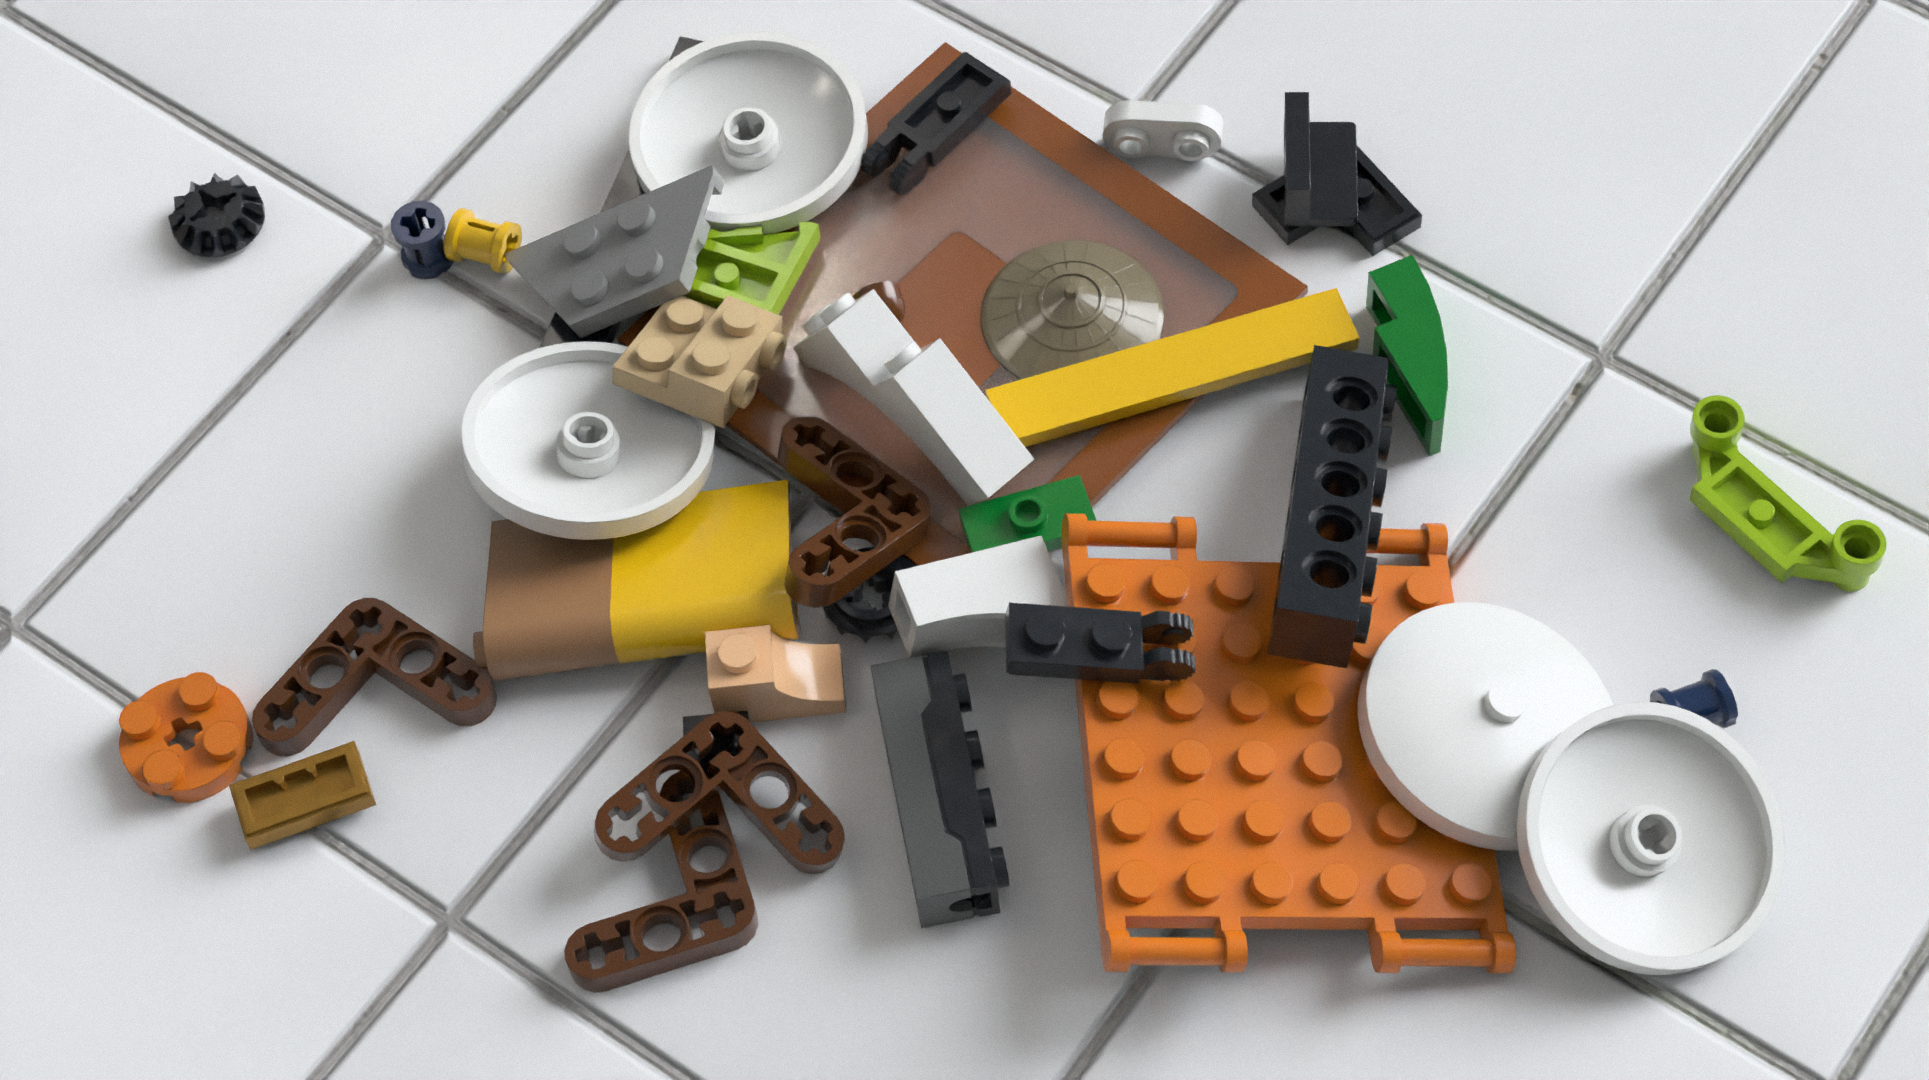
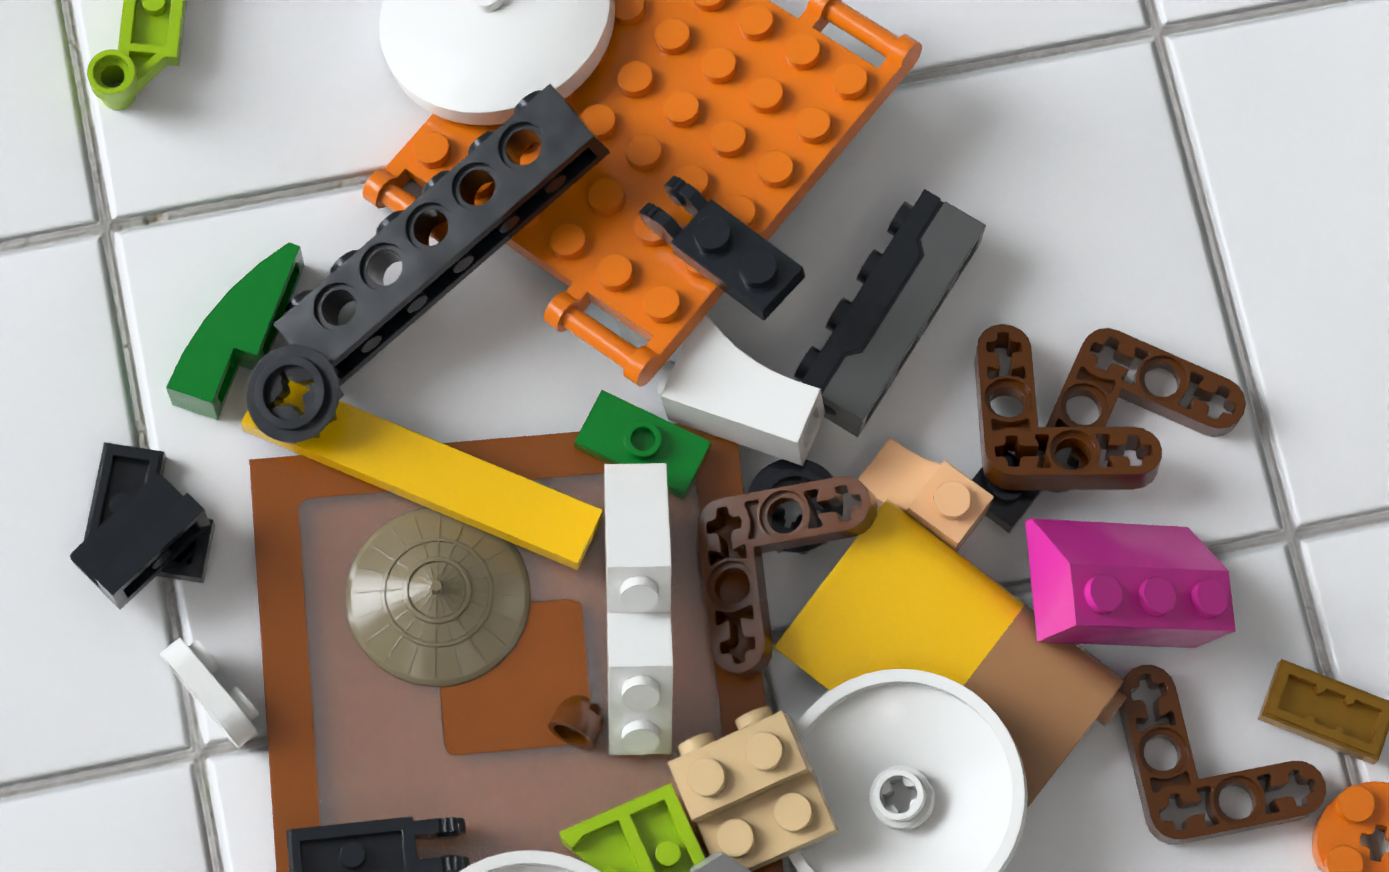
camera: 150 degrees left, 15 degrees up
(543, 723) = (1126, 585): none -> dark pink slope
(1292, 304) = (270, 386): none -> black gear

